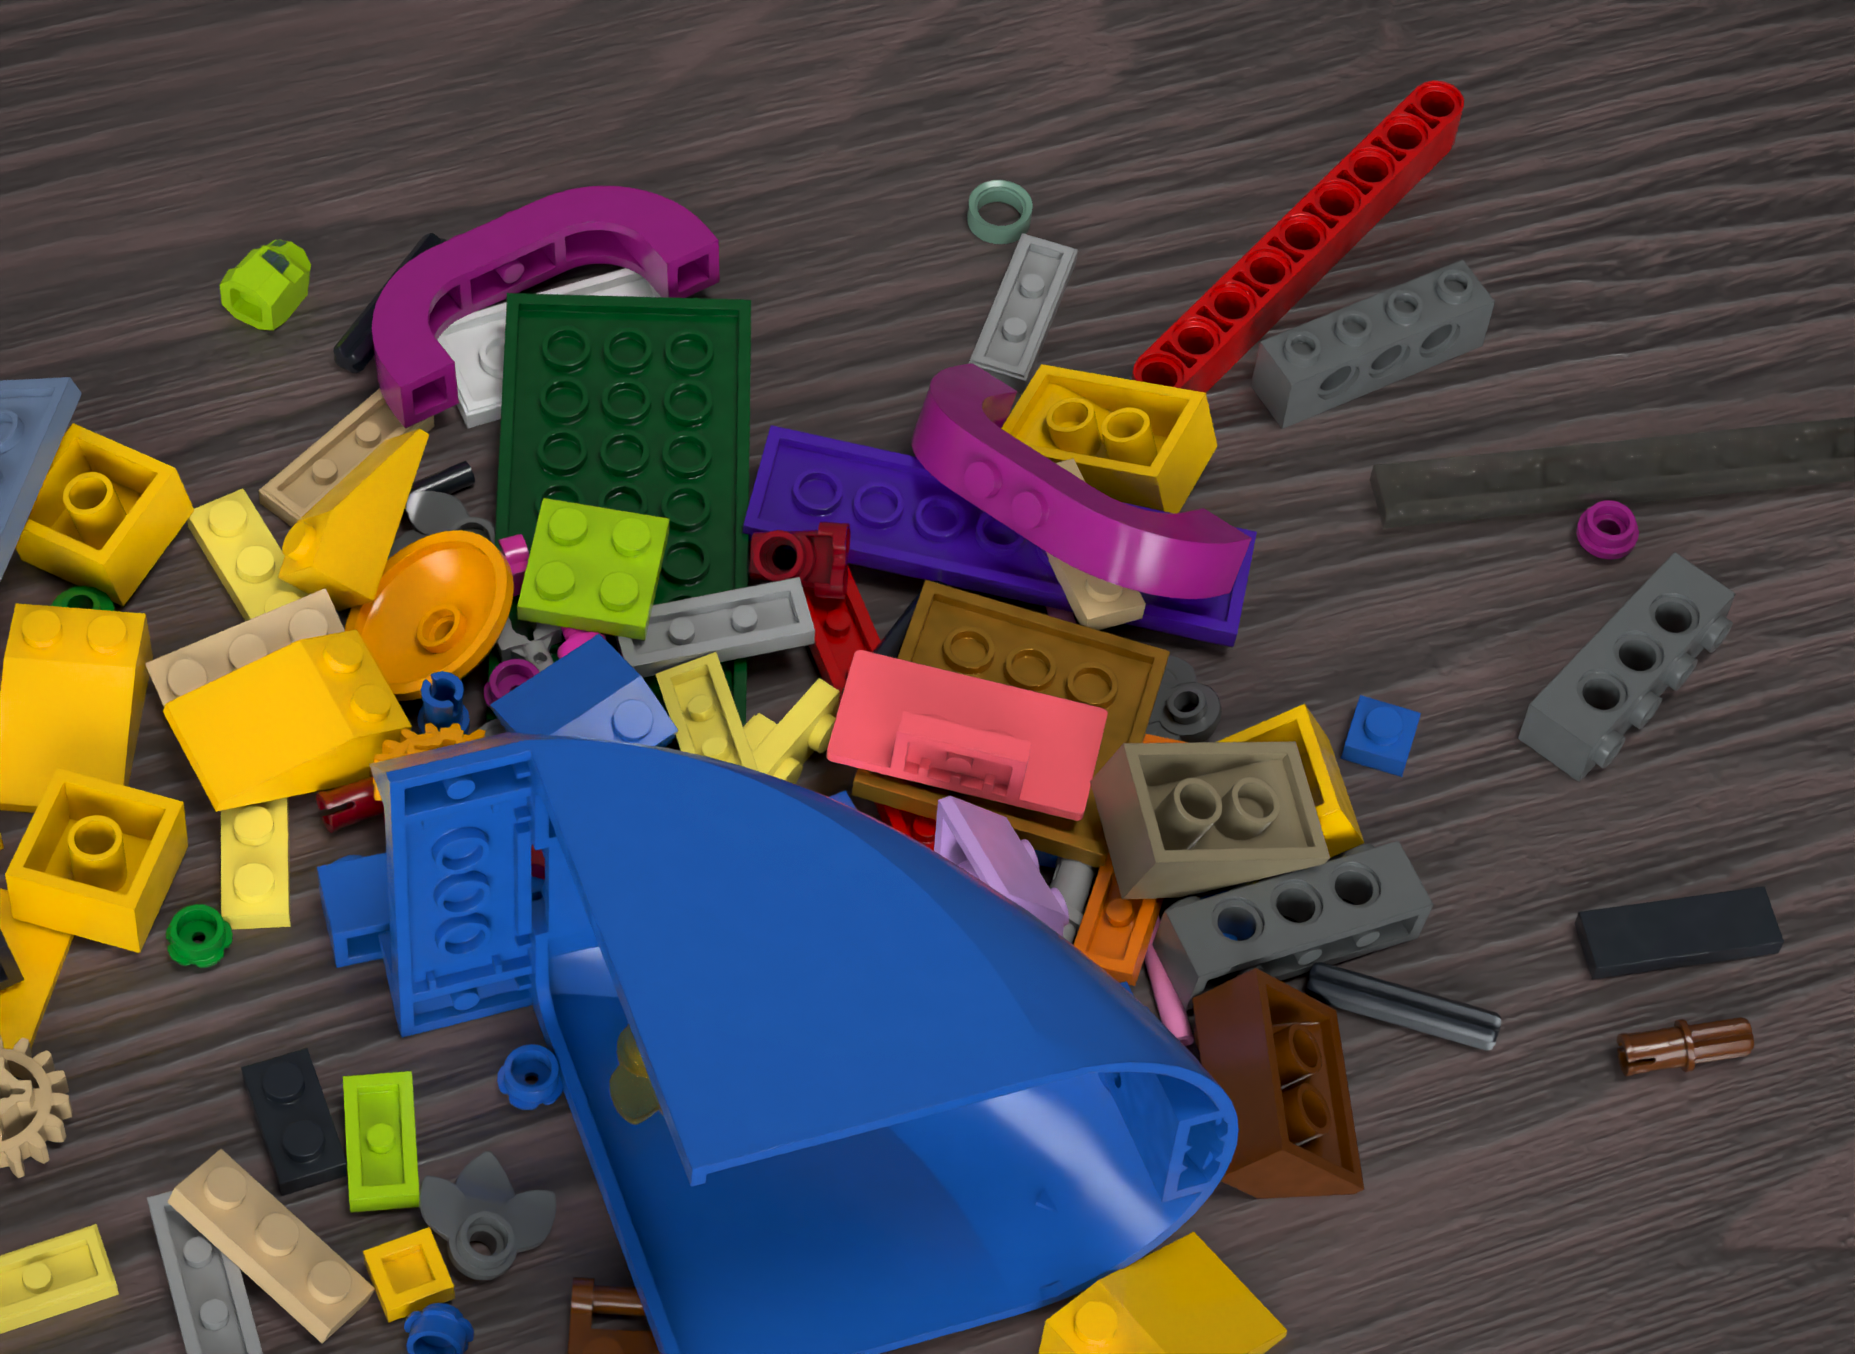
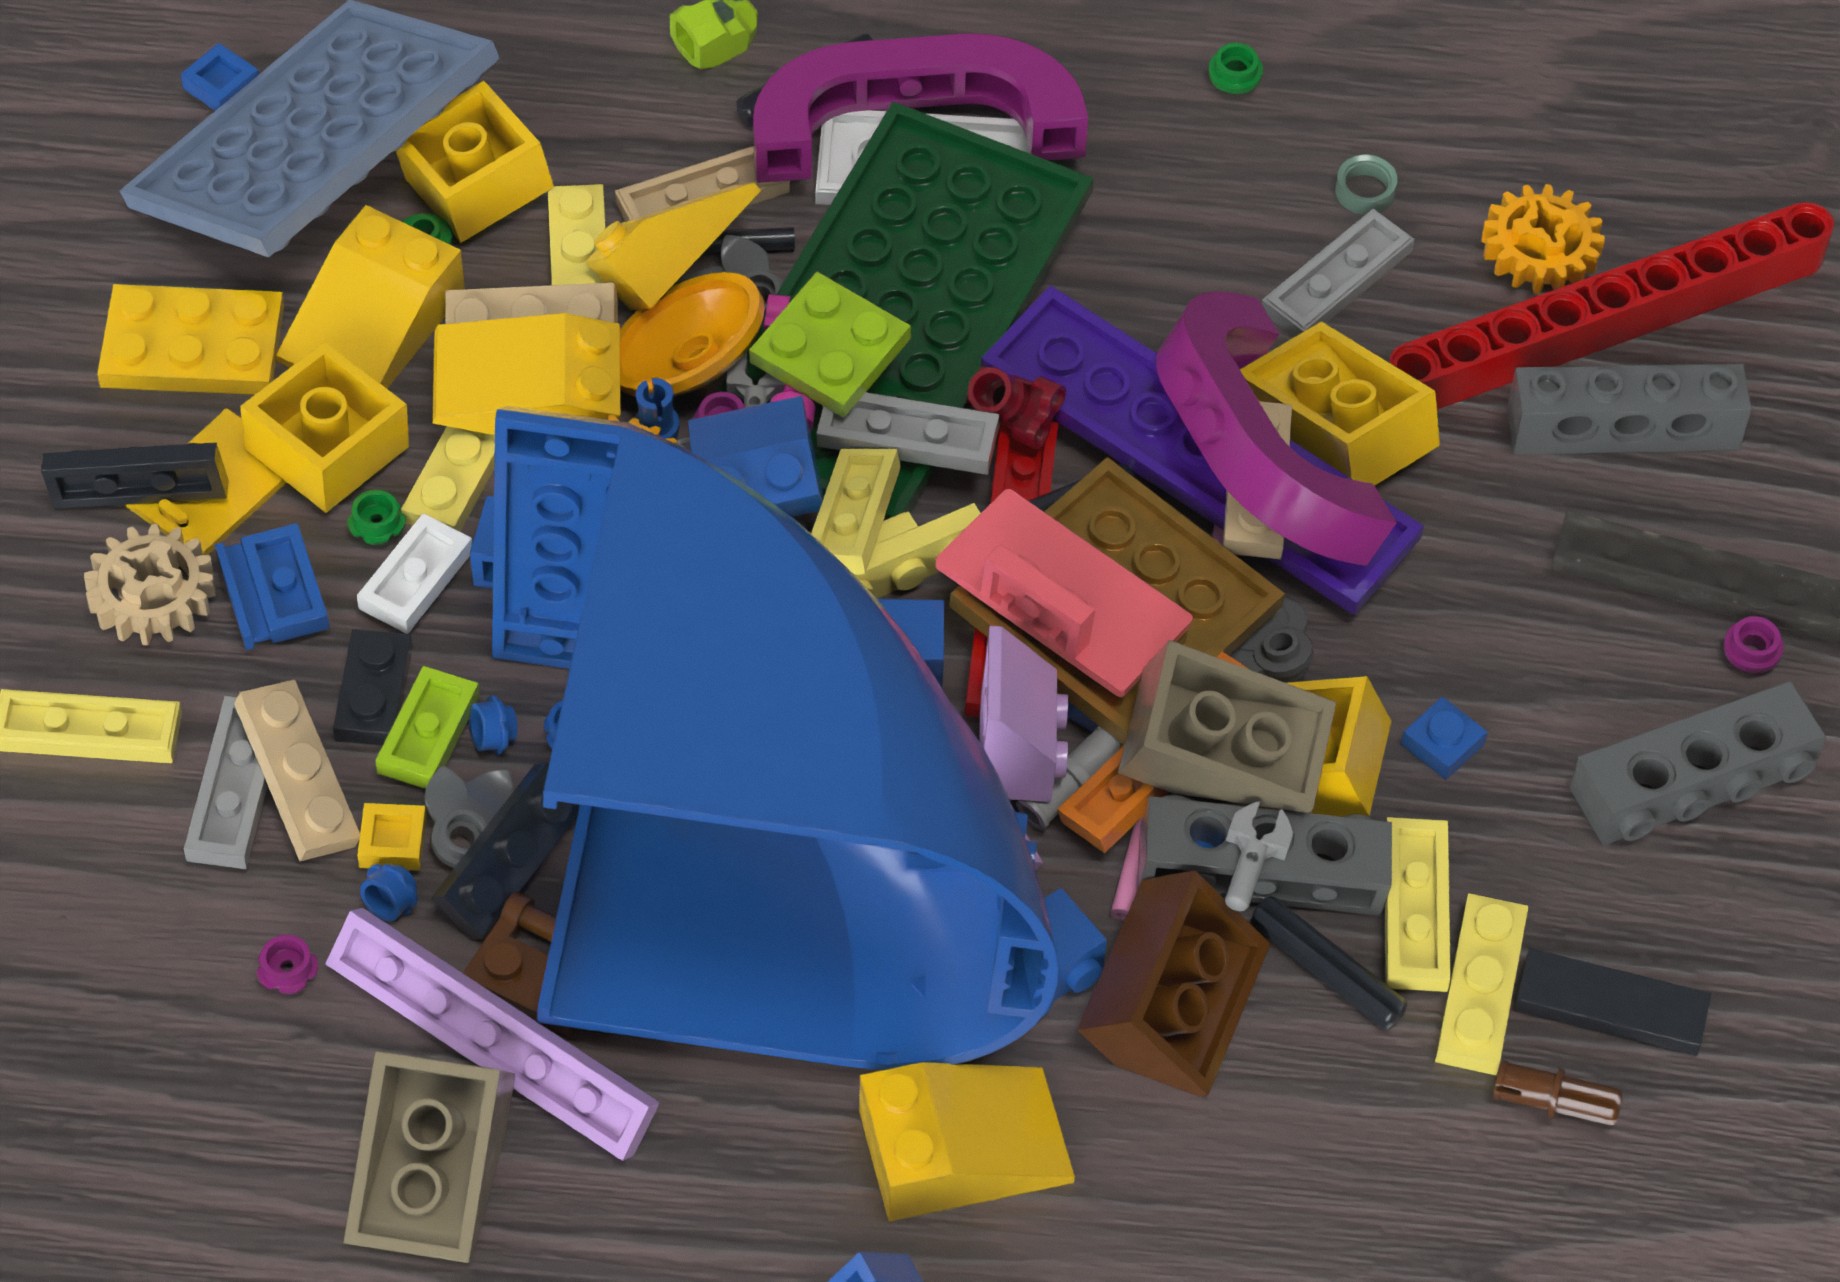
camera: 30 degrees right, 0 degrees up
(128, 1056) = (272, 586): none -> blue plate
(275, 980) = (414, 573): none -> white plate
(447, 1110) = (492, 725): none -> blue plate
(541, 1238) = (504, 856): none -> black plate
(812, 140) = (1235, 68): none -> green plate
(1199, 205) = (1542, 238): none -> light orange gear
(1314, 907) = (1253, 853): none -> light grey bar
(1461, 920) = (1418, 907): none -> light yellow plate
(1552, 966) = (1482, 984): none -> light yellow plate

